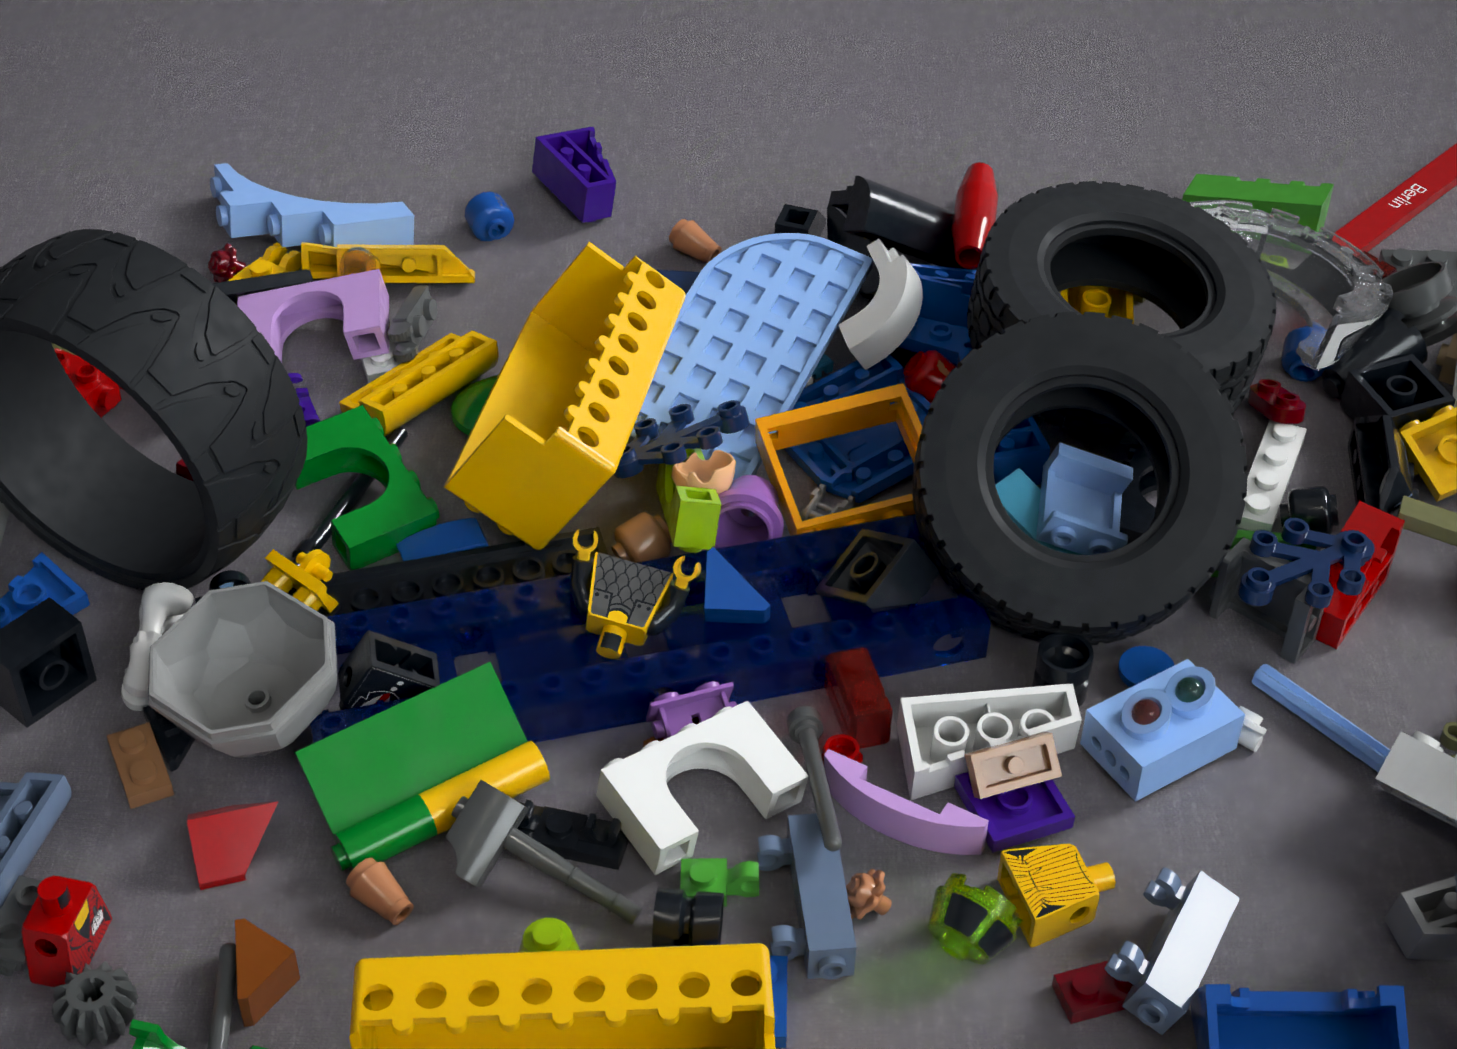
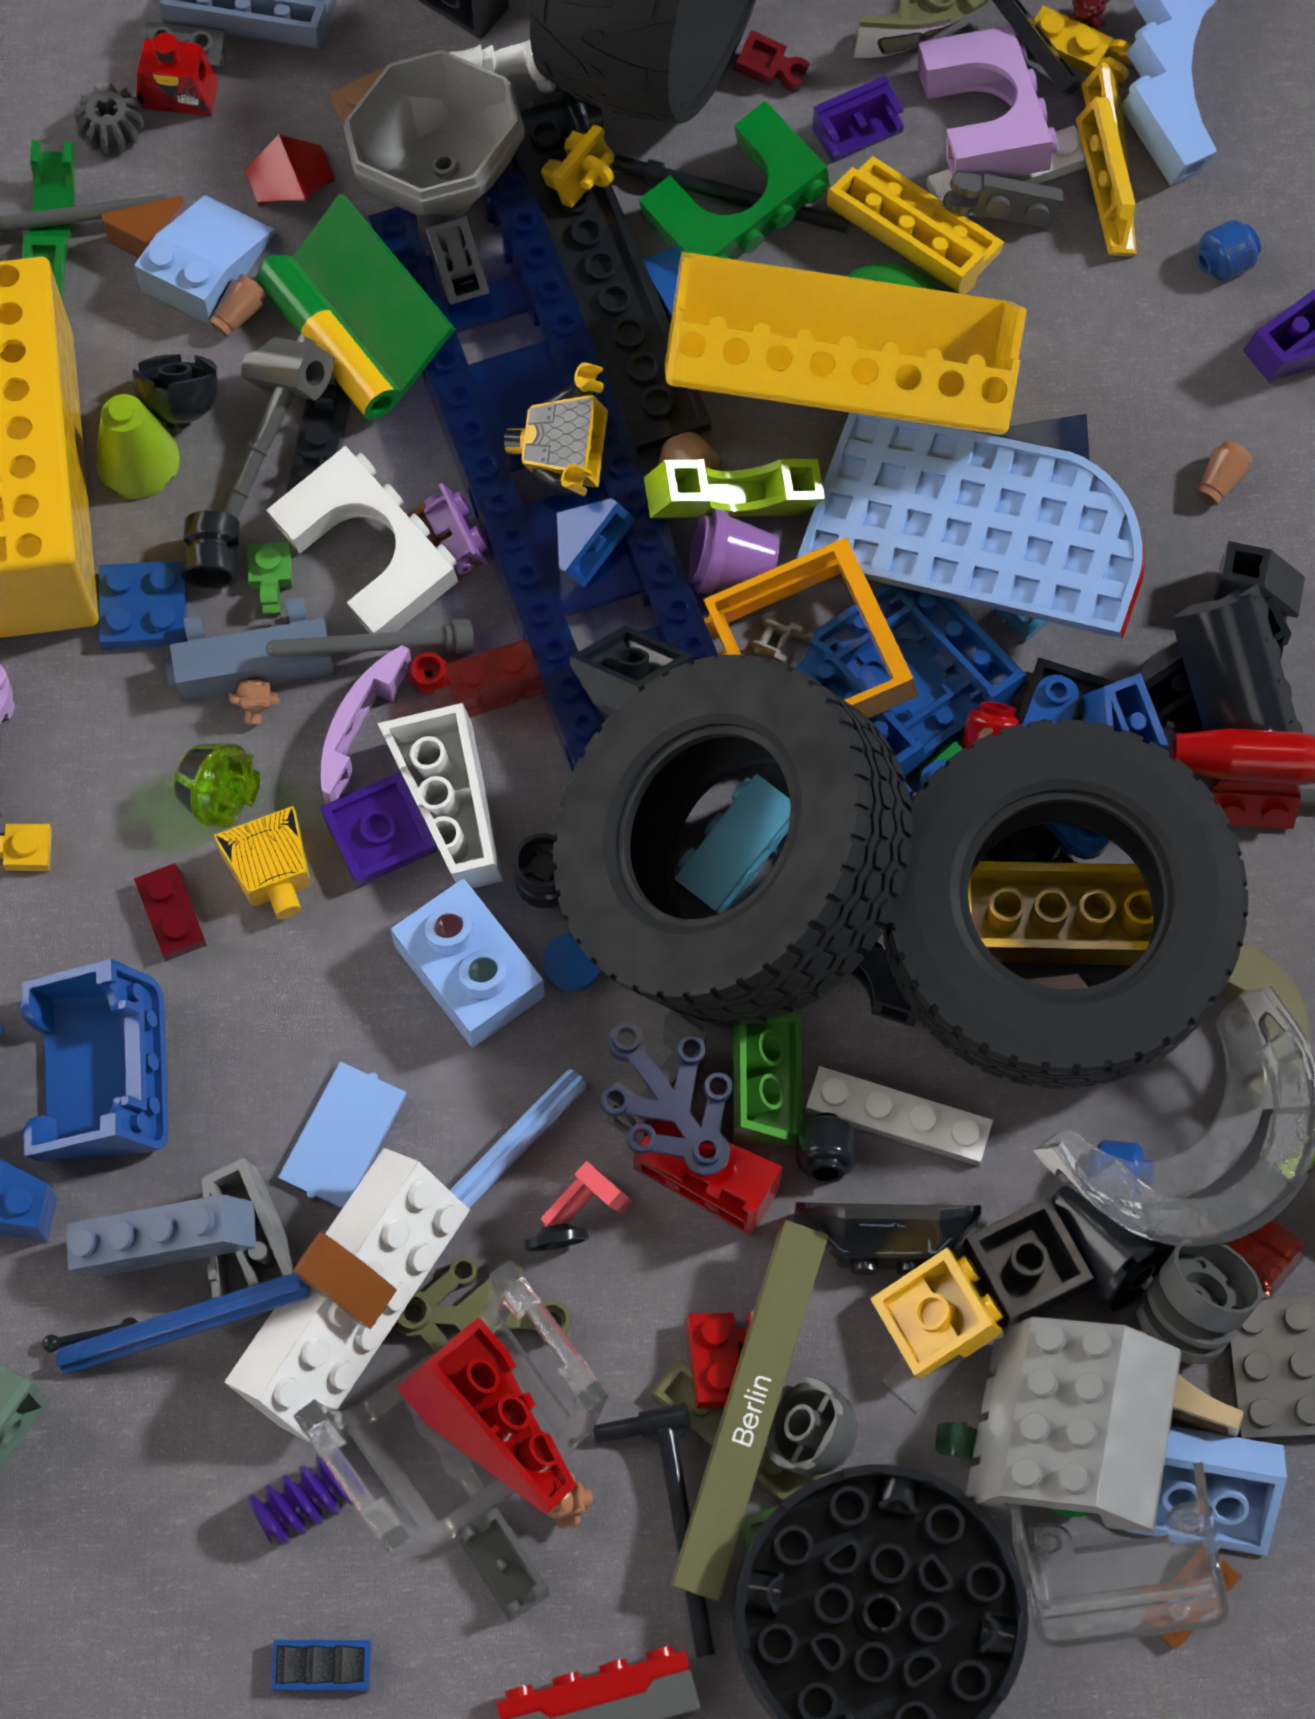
camera: 85 degrees right, 25 degrees up
(319, 915) = (199, 256): none -> light blue slope
(356, 261) = (1085, 127): clear yellow tile -> none
(483, 924) = (176, 389): none -> black cylinder
(675, 438) = (786, 428): dark blue plant -> none
(711, 473) = (751, 493): light nougat hair -> none
(890, 314) = (1057, 663): white arch -> none
(1013, 765) = (396, 814): plate -> none
(1082, 501) = (730, 867): light blue panel -> none
(1181, 951) = (187, 964): brick -> none
(1251, 732) = (499, 1056): white plate -> none
(1276, 402) = (1021, 1127): dark red plate -> none
(1335, 855) = (342, 1135): none -> light blue piece
(1394, 672) = (557, 1230): none -> coral piece

